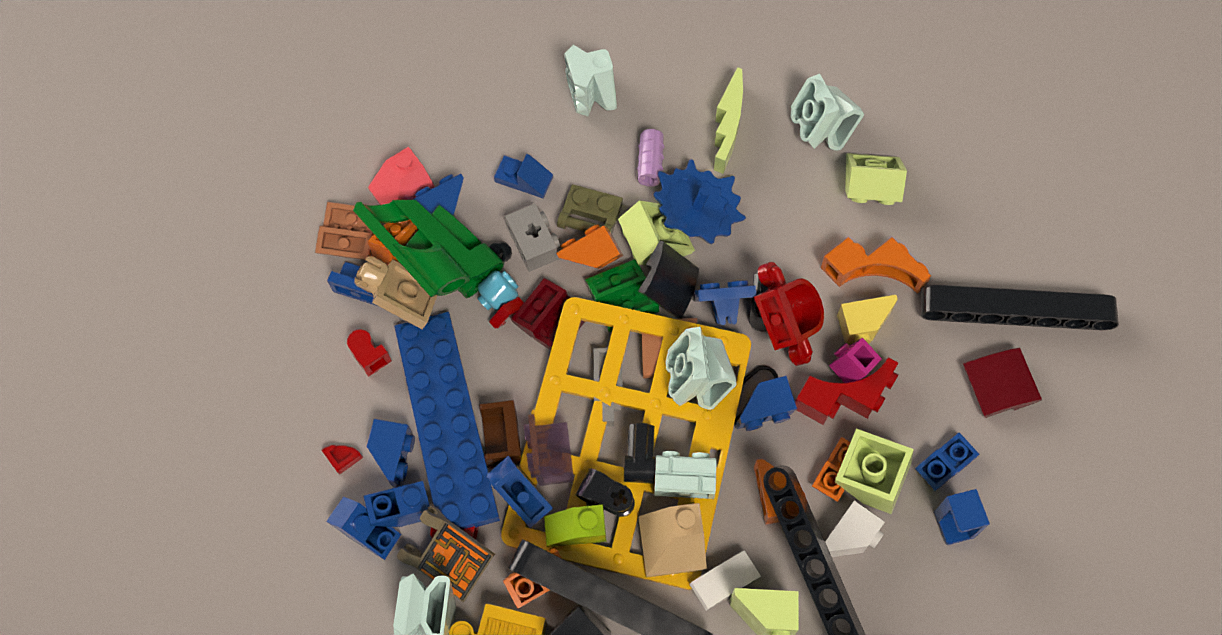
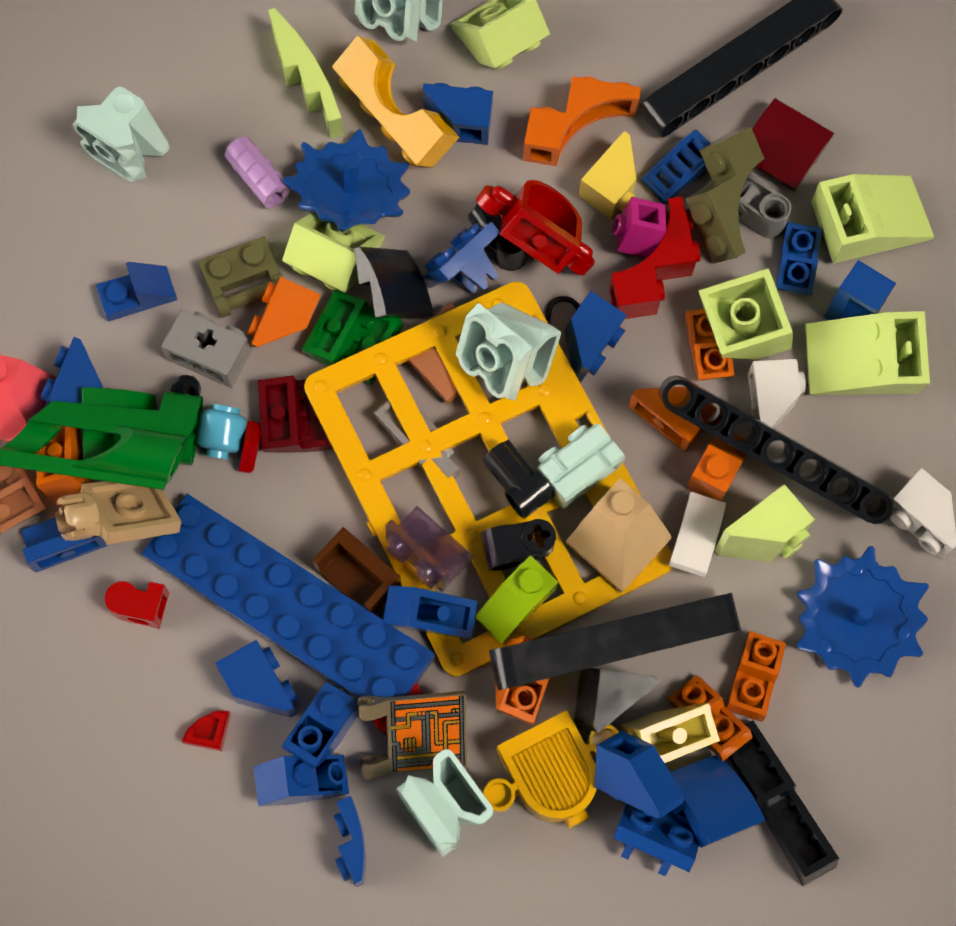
camera: 45 degrees left, 5 degrees up
(352, 596) = (353, 859): none -> blue slope
(765, 147) = (368, 74): none -> yellow arch
(772, 550) = (716, 469): none -> orange slope
(805, 210) = (464, 109): none -> blue slope
(915, 385) = (717, 204): none -> olive arch
(927, 335) = (687, 148): none -> blue slope
(937, 557) = (868, 354): none -> yellowish green slope
(944, 402) = (759, 201): none -> light grey piece
(1022, 470) = (869, 215): none -> yellowish green slope

